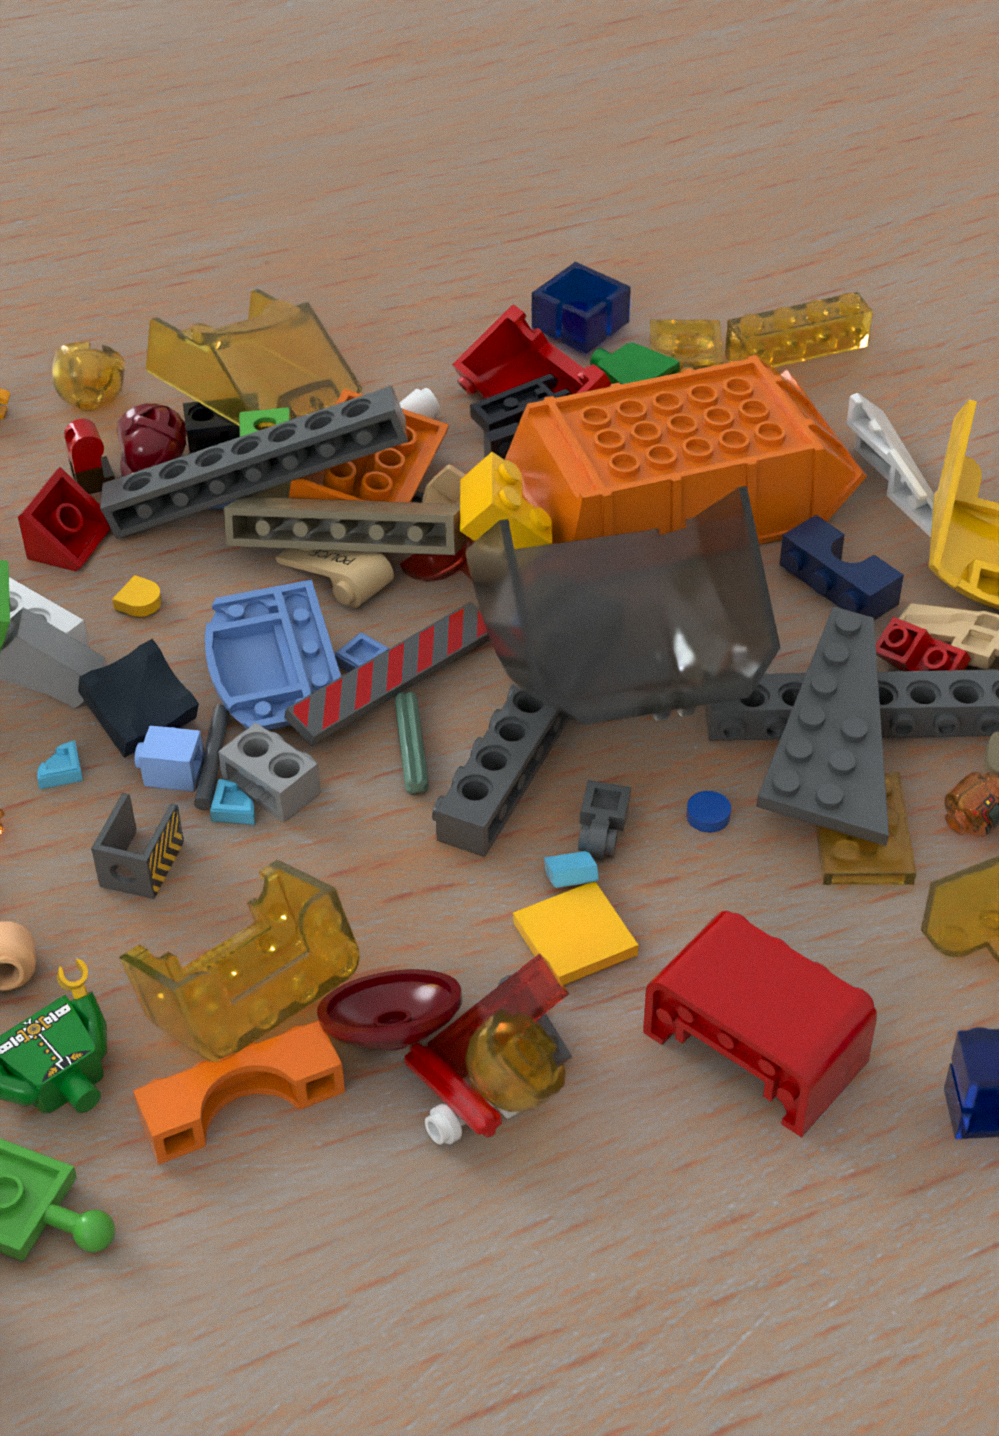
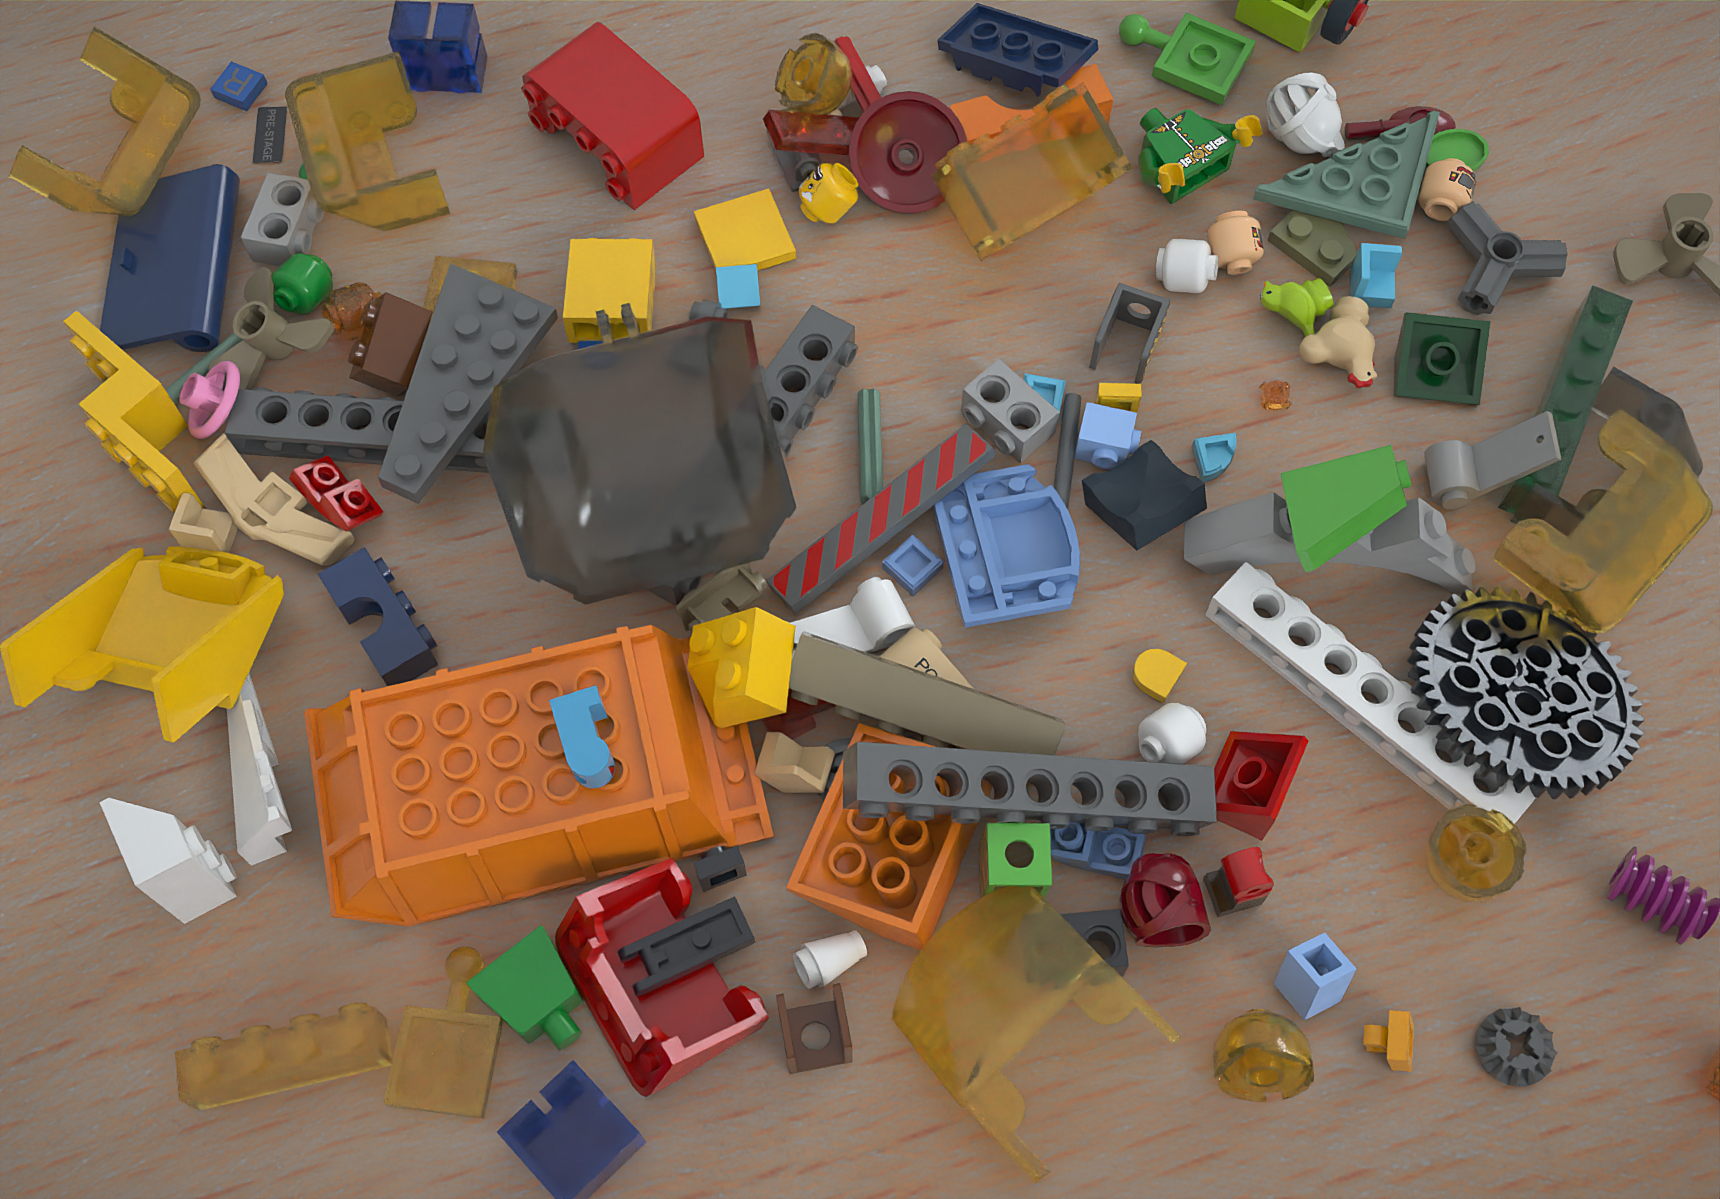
camera: 175 degrees left, 20 degrees up
(38, 414) = (1314, 976): none -> light blue brick
(65, 925) = (1186, 265): none -> white head
(132, 545) = (1172, 734): none -> white head
(156, 789) = (1119, 396): none -> yellow tile
(255, 1168) = (1015, 49): none -> dark blue piece
(402, 608) = (867, 624): none -> white door
(434, 376) = (830, 1014): none -> reddish brown piece
(481, 960) = (828, 193): none -> yellow head
(618, 412) = (580, 739): none -> dark azure leg
(709, 844) = (605, 277): none -> yellow brick
(921, 760) = (389, 343): none -> reddish brown brick
(928, 382) = (170, 860): none -> white slope

